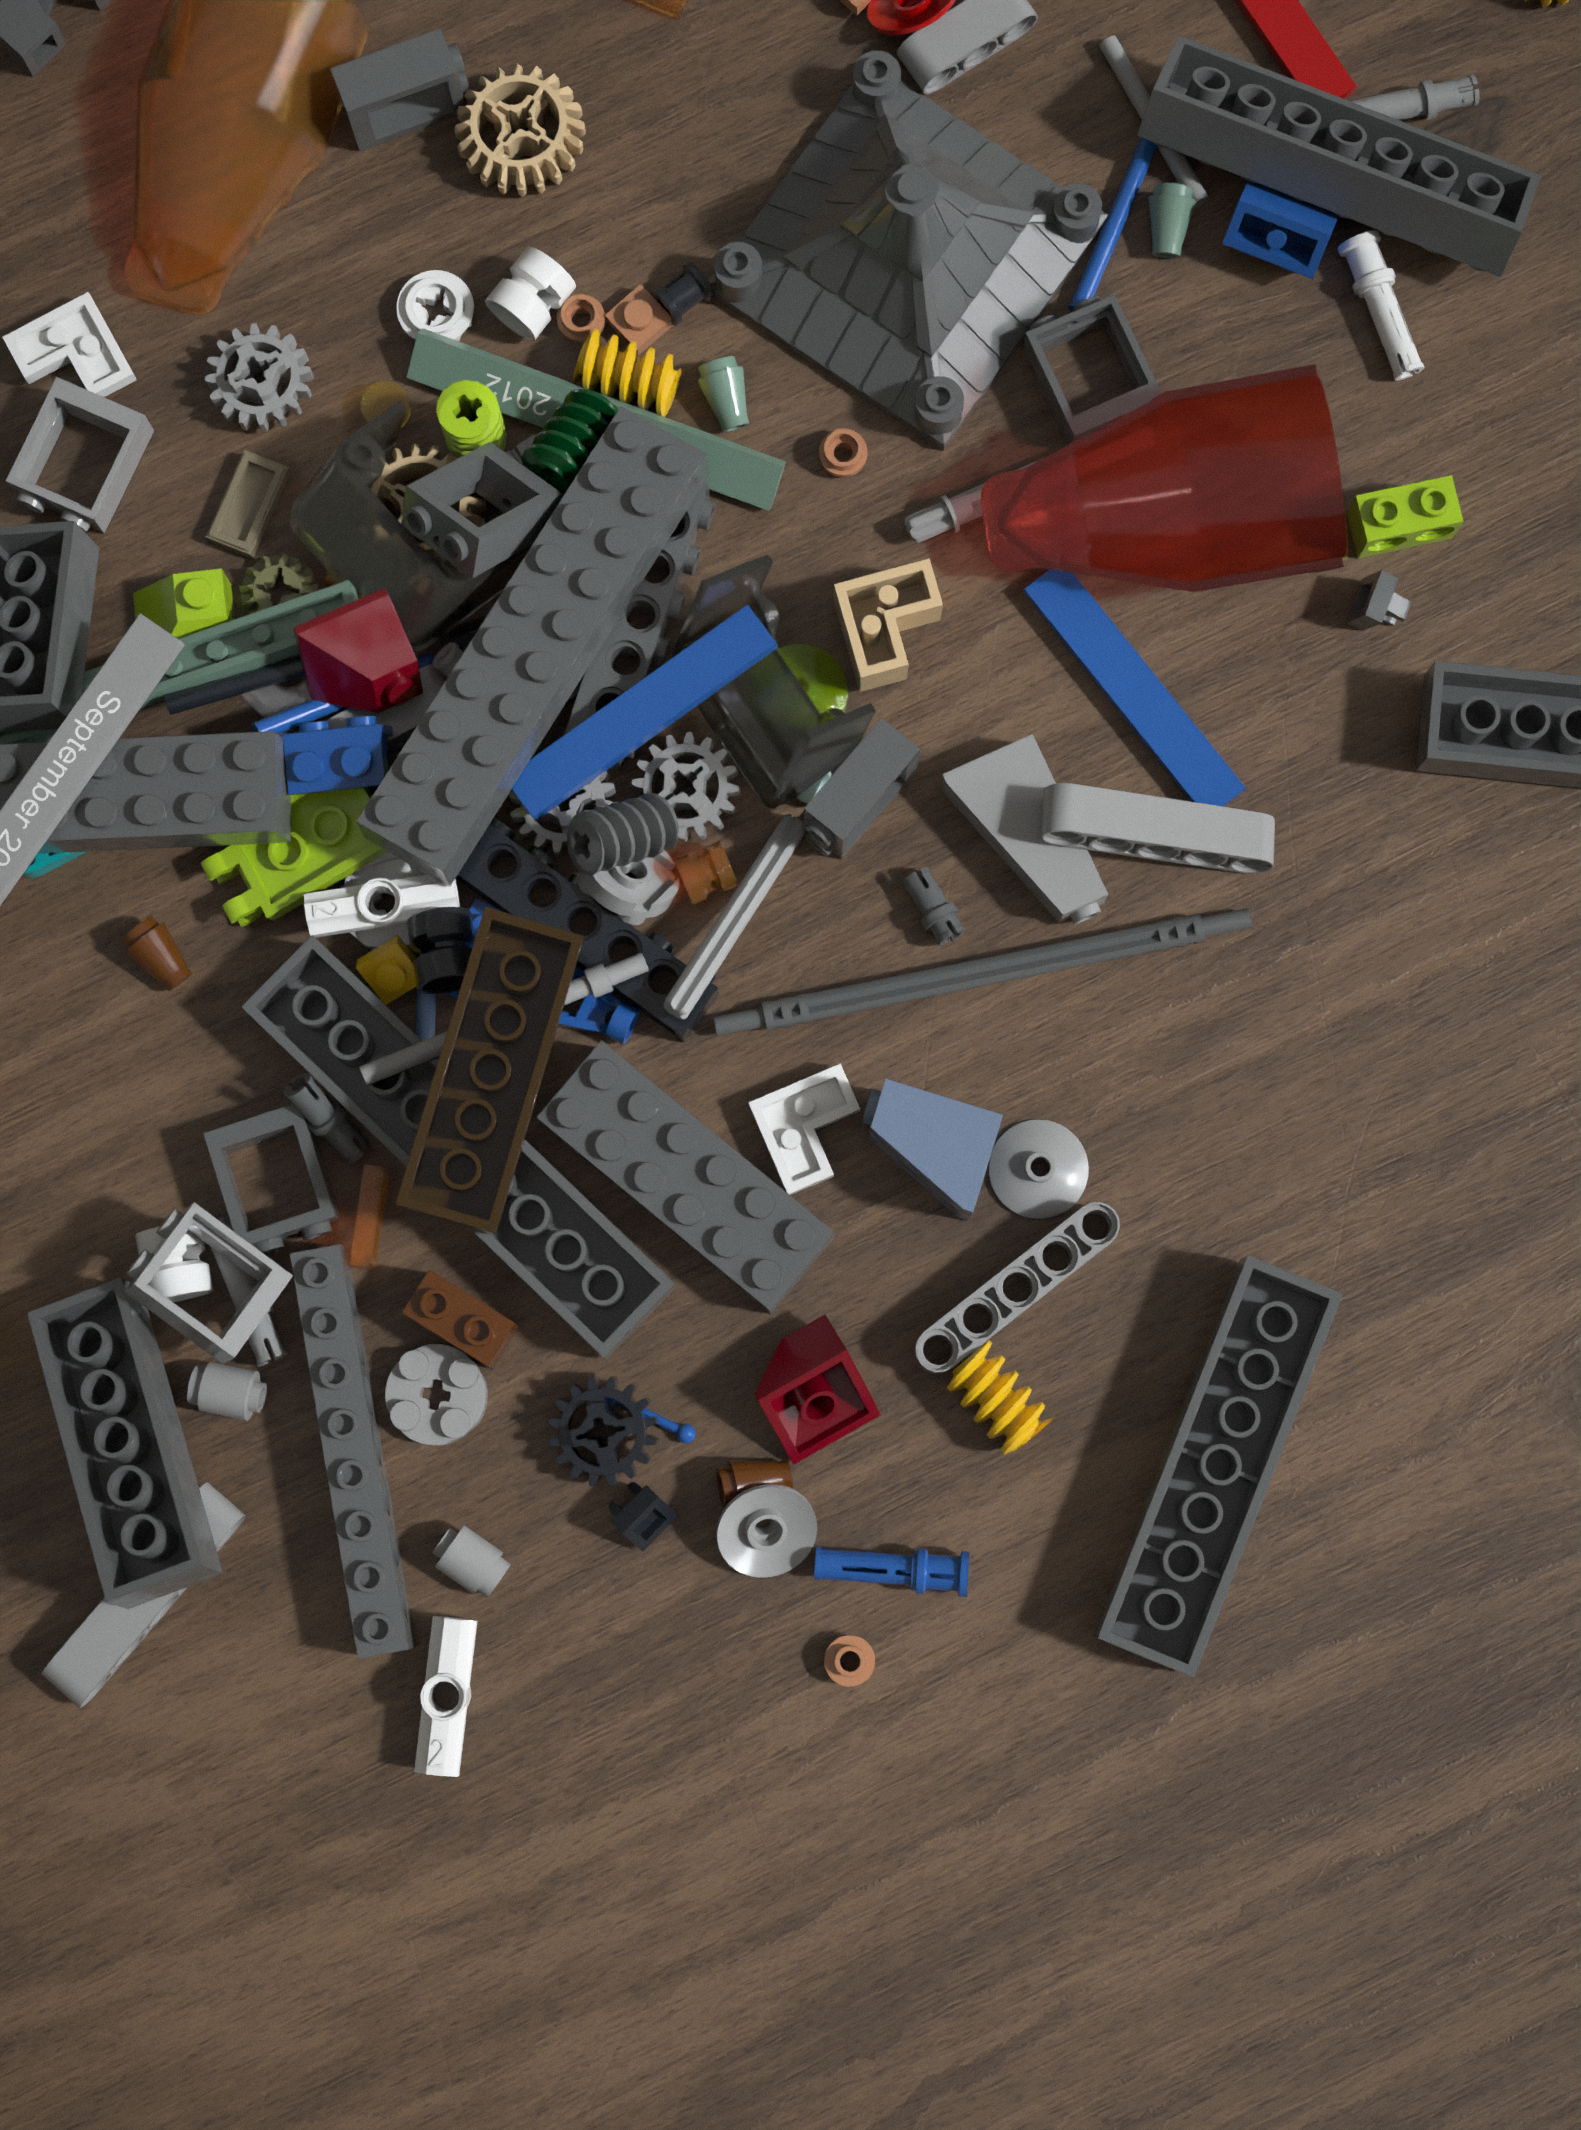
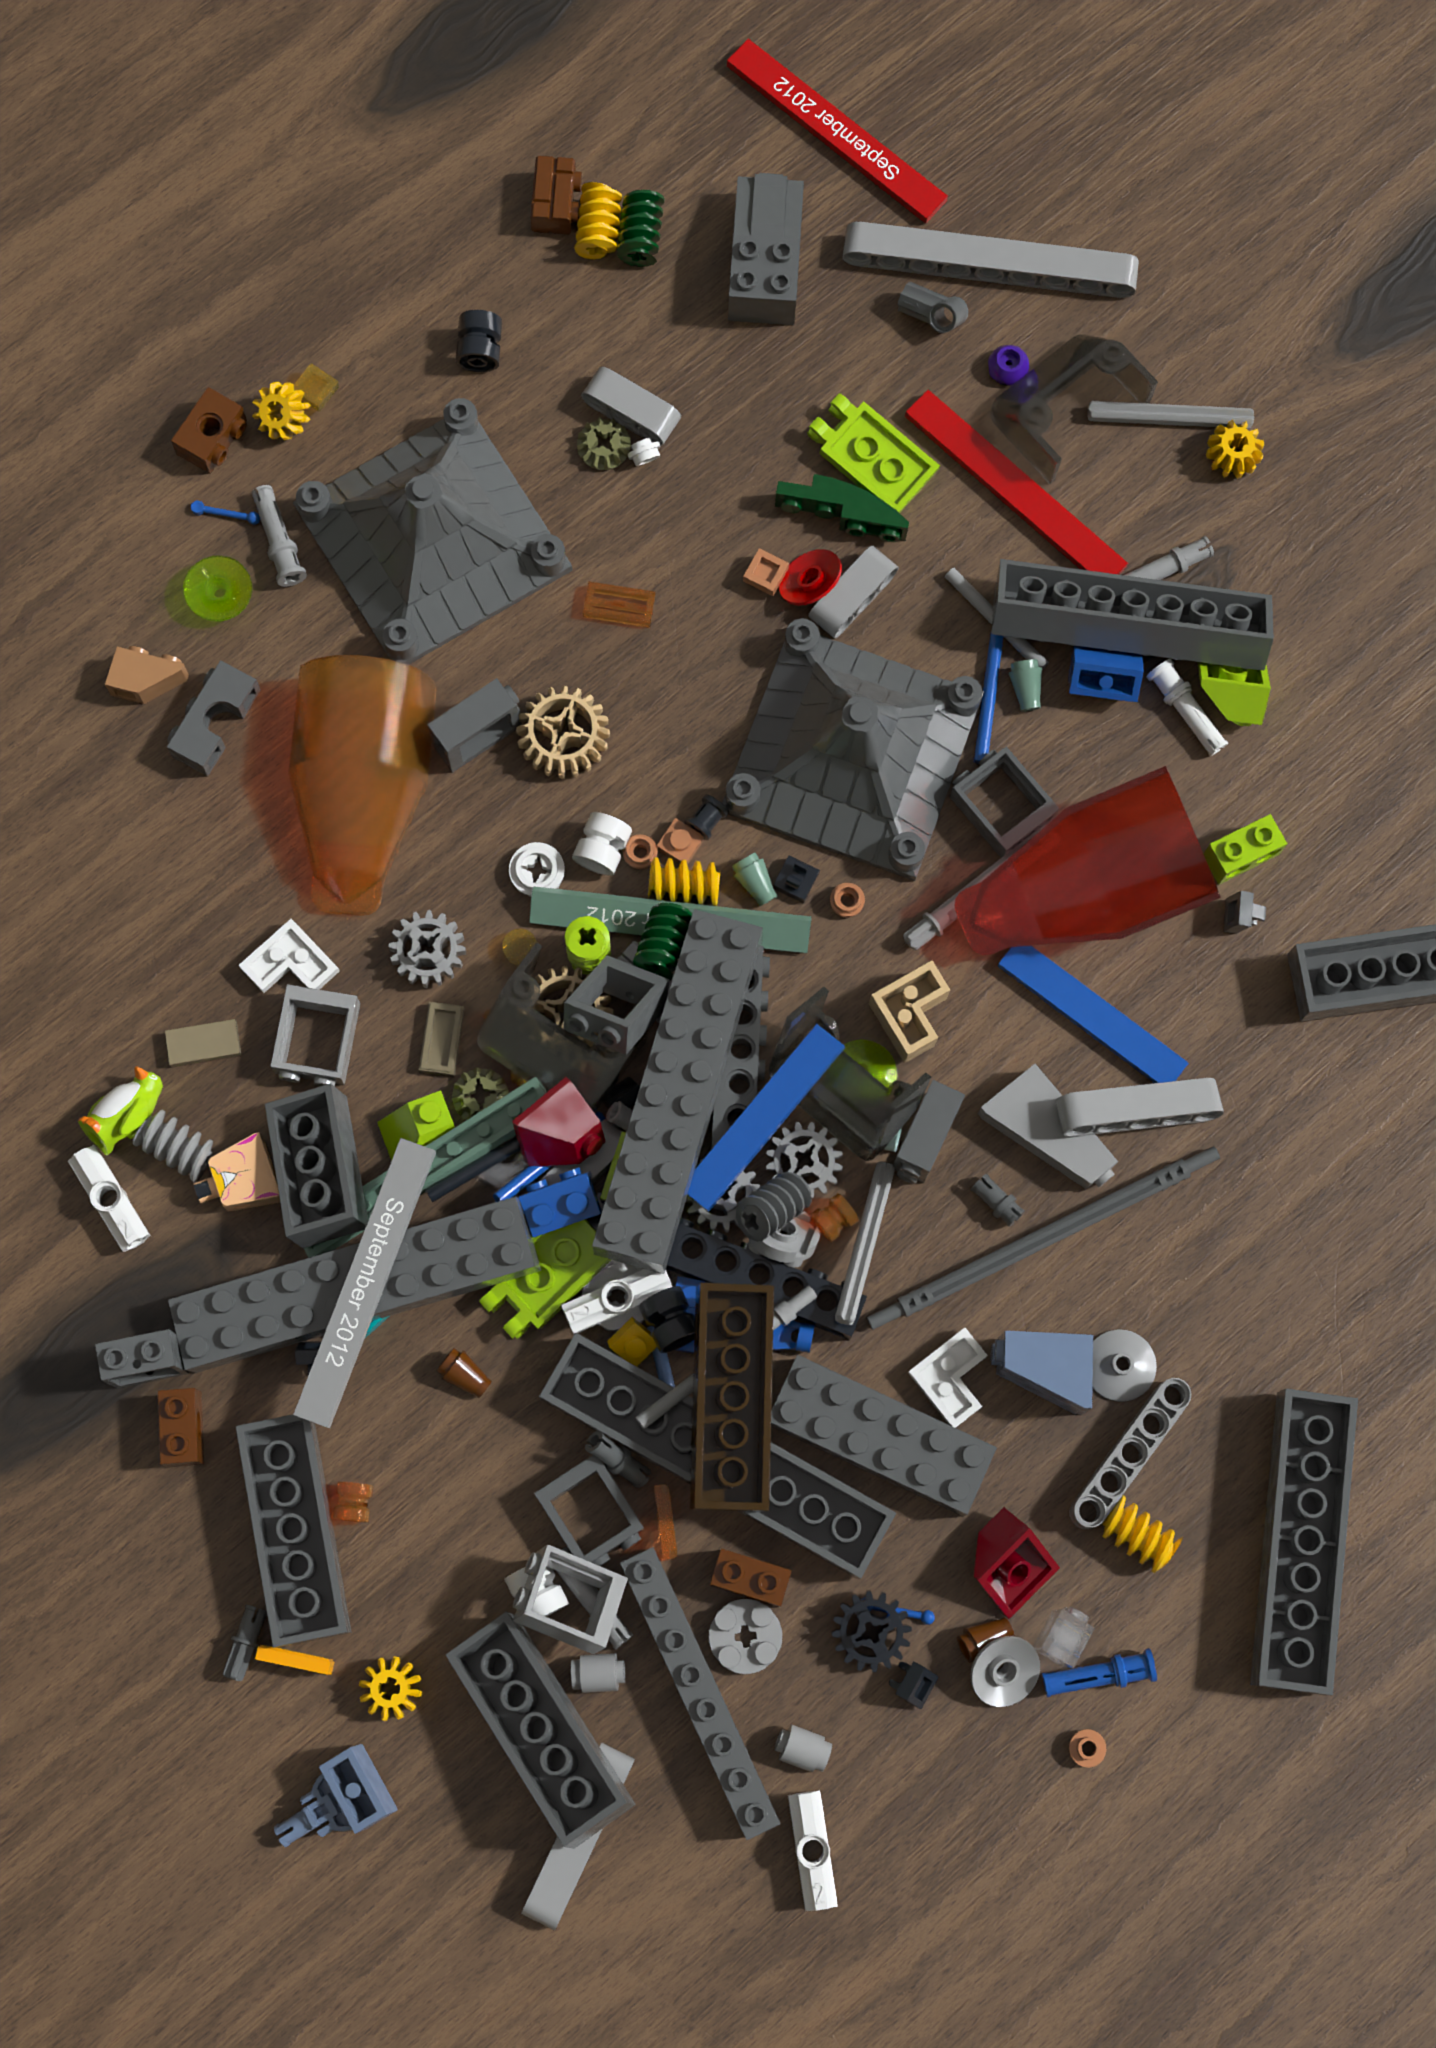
camera: 20 degrees left, 5 degrees down
(782, 407) = (796, 879): none -> black tile
(856, 1505) = (1064, 1636): none -> clear brick
(1454, 297) = (1237, 691): none -> lime slope

